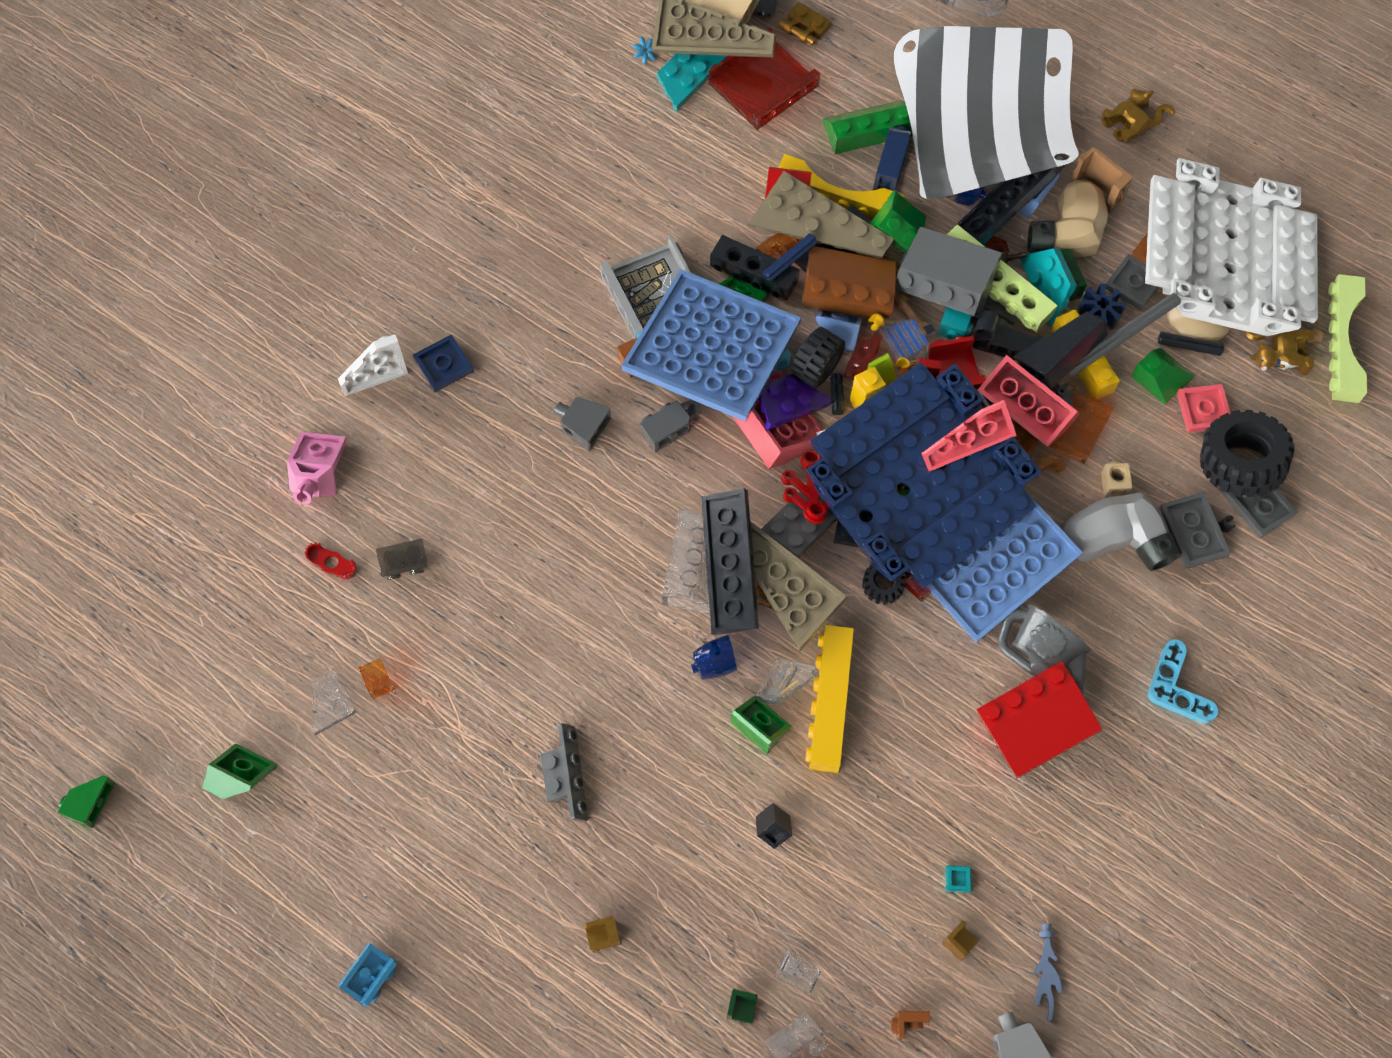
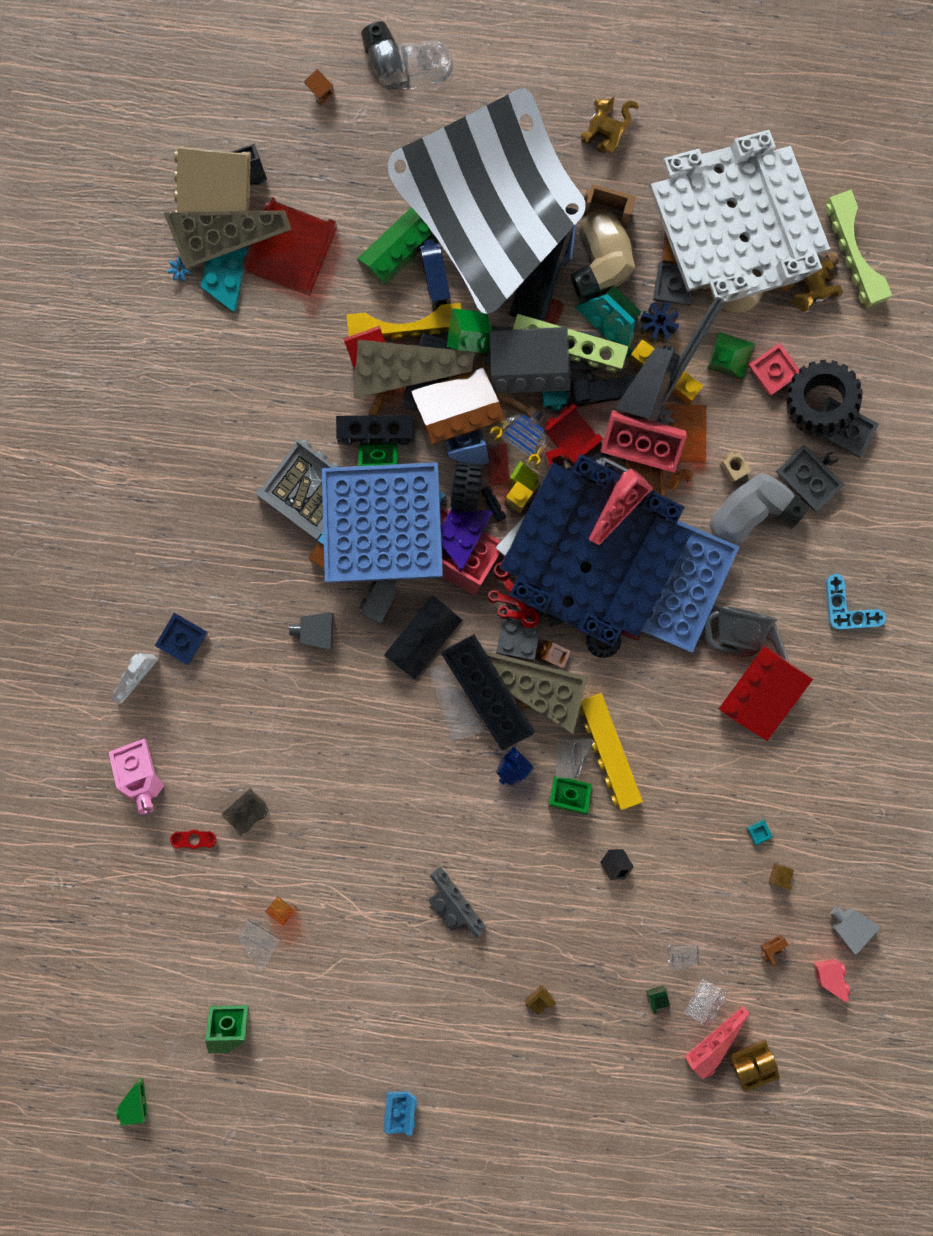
camera: 30 degrees left, 20 degrees up
(686, 479) = (423, 637): none -> black slope
(790, 257) = (401, 411): dark blue axle -> none
(808, 20) = (296, 167): pearl gold plate -> none
(824, 565) = (553, 653): none -> dark orange bracket
(1005, 257) = (563, 316): dark brown hand -> none
(1049, 975) = (851, 866): sand blue piece -> none
(1190, 343) = (740, 316): black axle -> none

